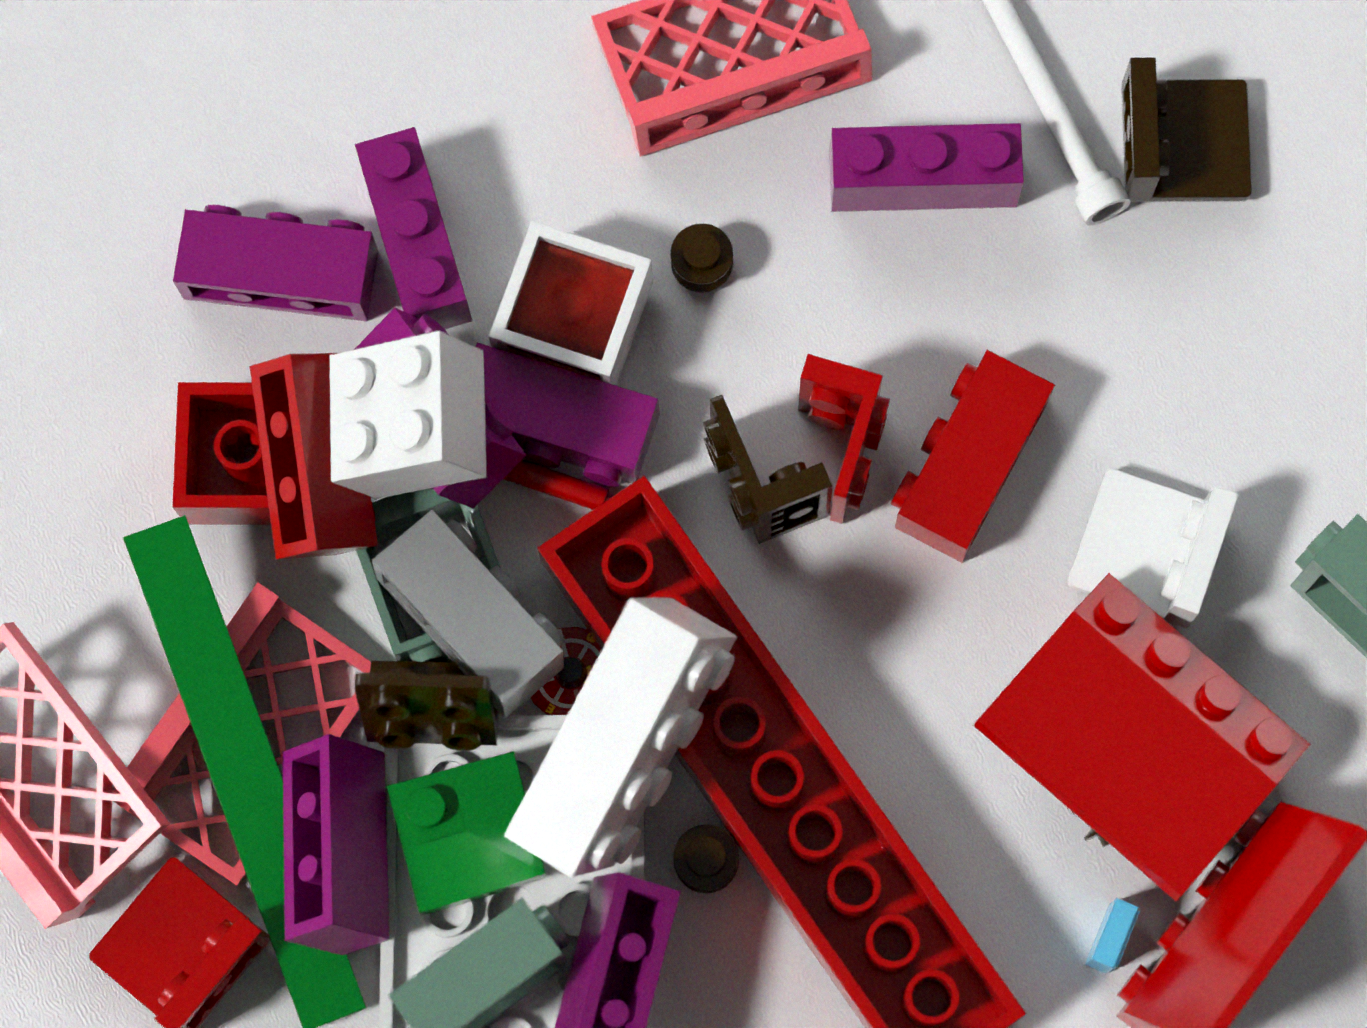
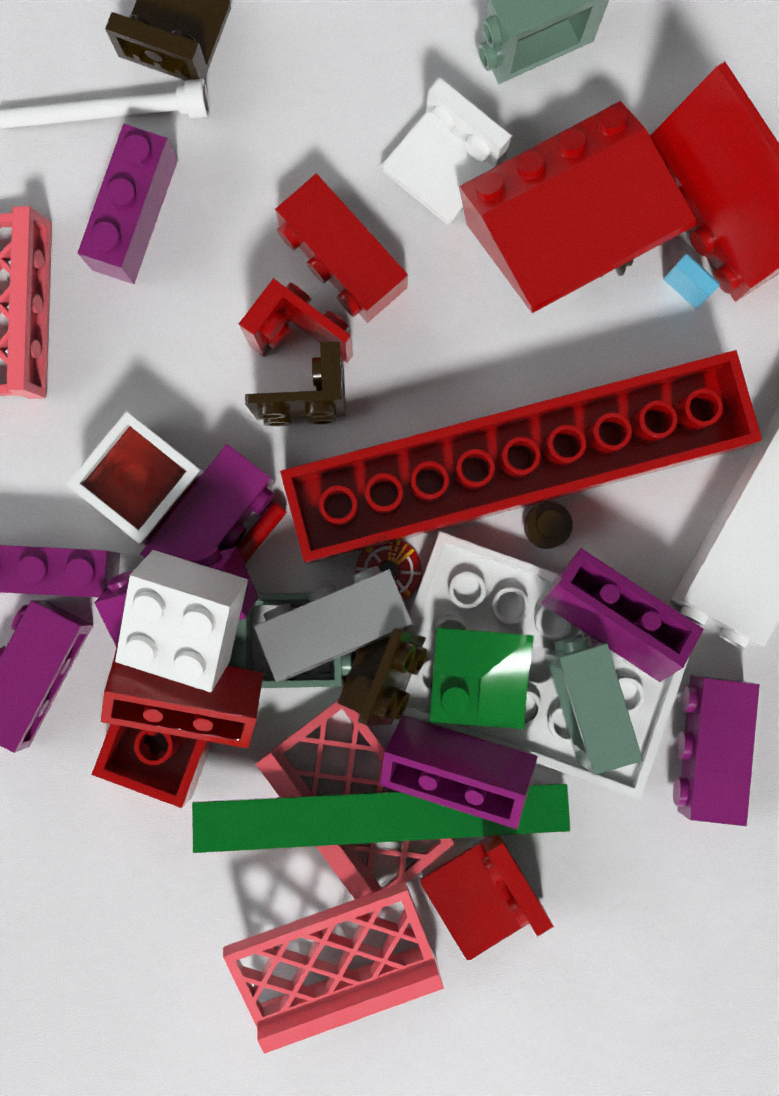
camera: 80 degrees left, 10 degrees up
(622, 736) = (459, 542): white brick -> none
(701, 257) = (135, 380): dark brown wheel -> none

